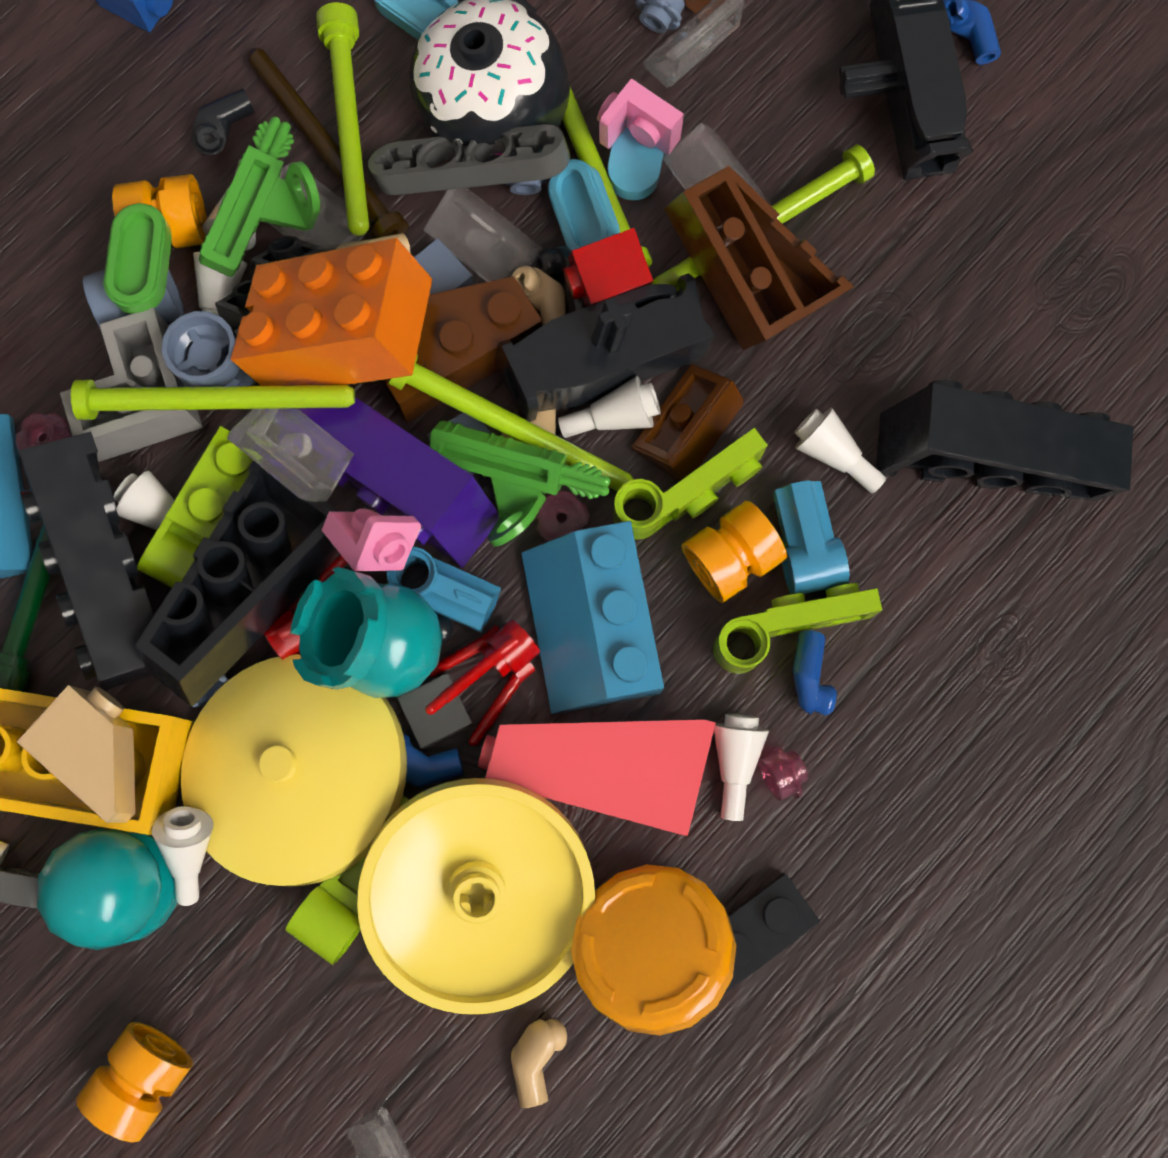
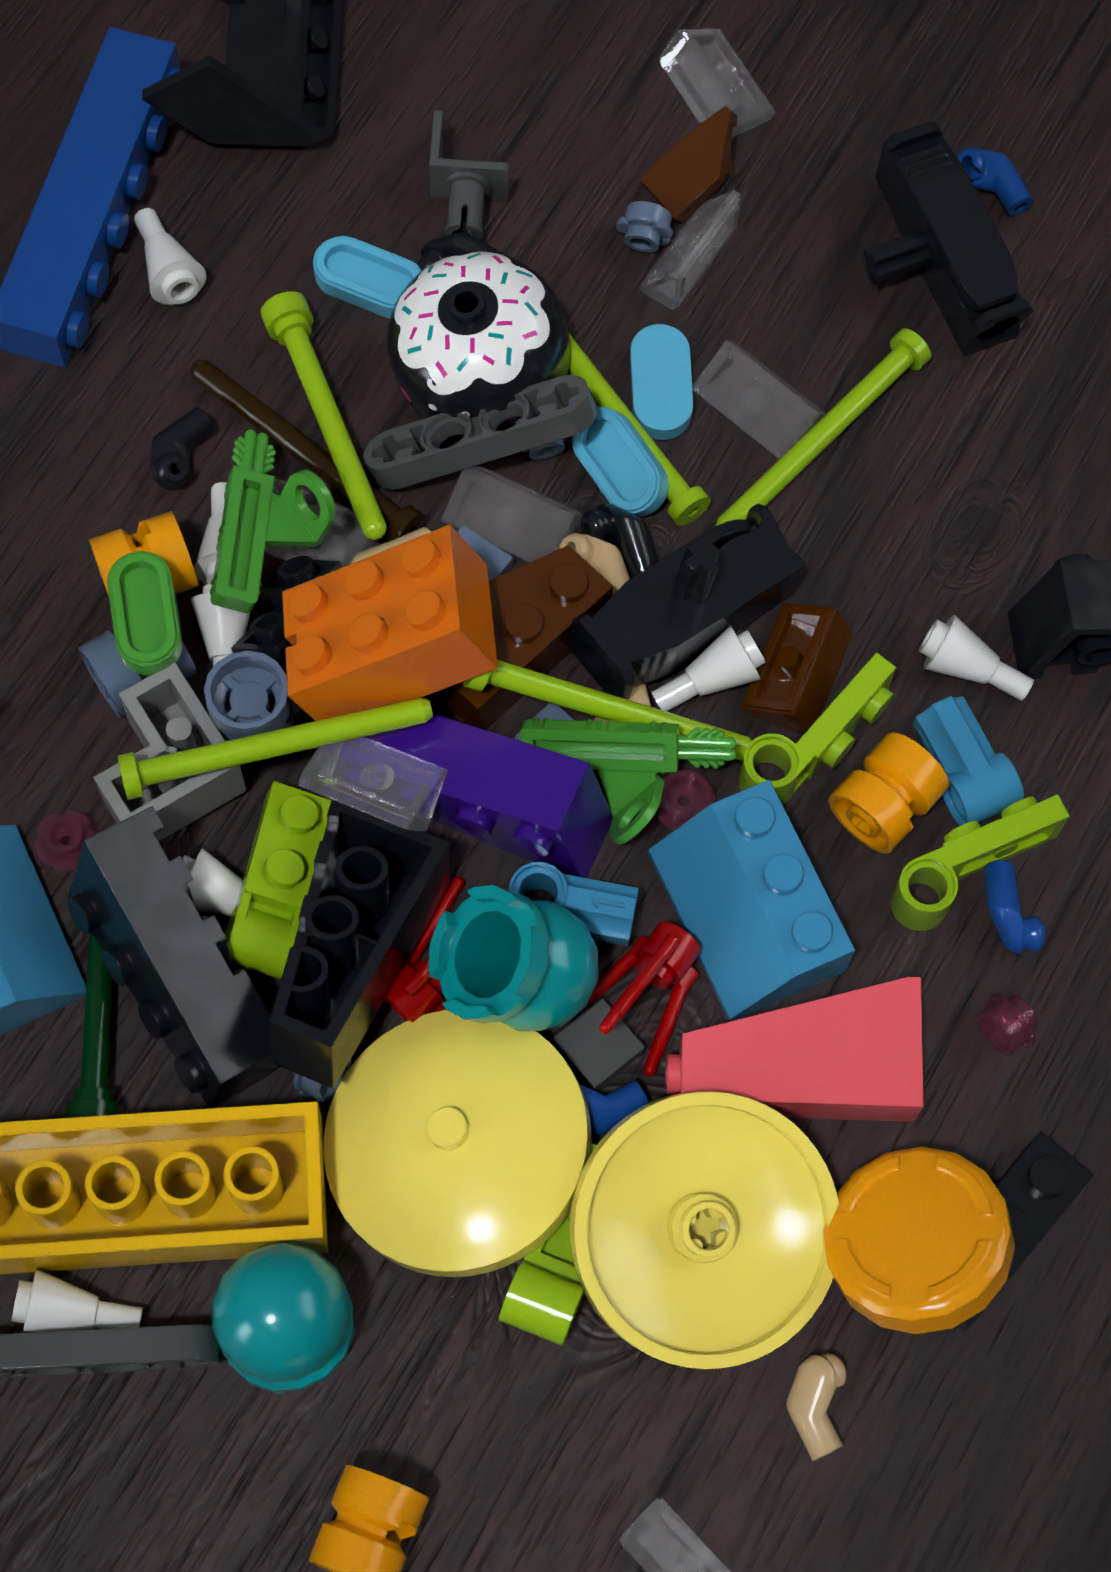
camera: 15 degrees left, 10 degrees down
(88, 750) = (237, 1149): tan slope -> none
(183, 841) = (359, 1243): white cone -> none
(372, 540) = (495, 857): bright pink bracket -> none
(607, 268) = (670, 516): red brick -> none
(644, 114) = (663, 343): bright pink bracket -> none
(738, 751) = (952, 1011): white cone -> none
(749, 258) = (822, 474): reddish brown wedge -> none

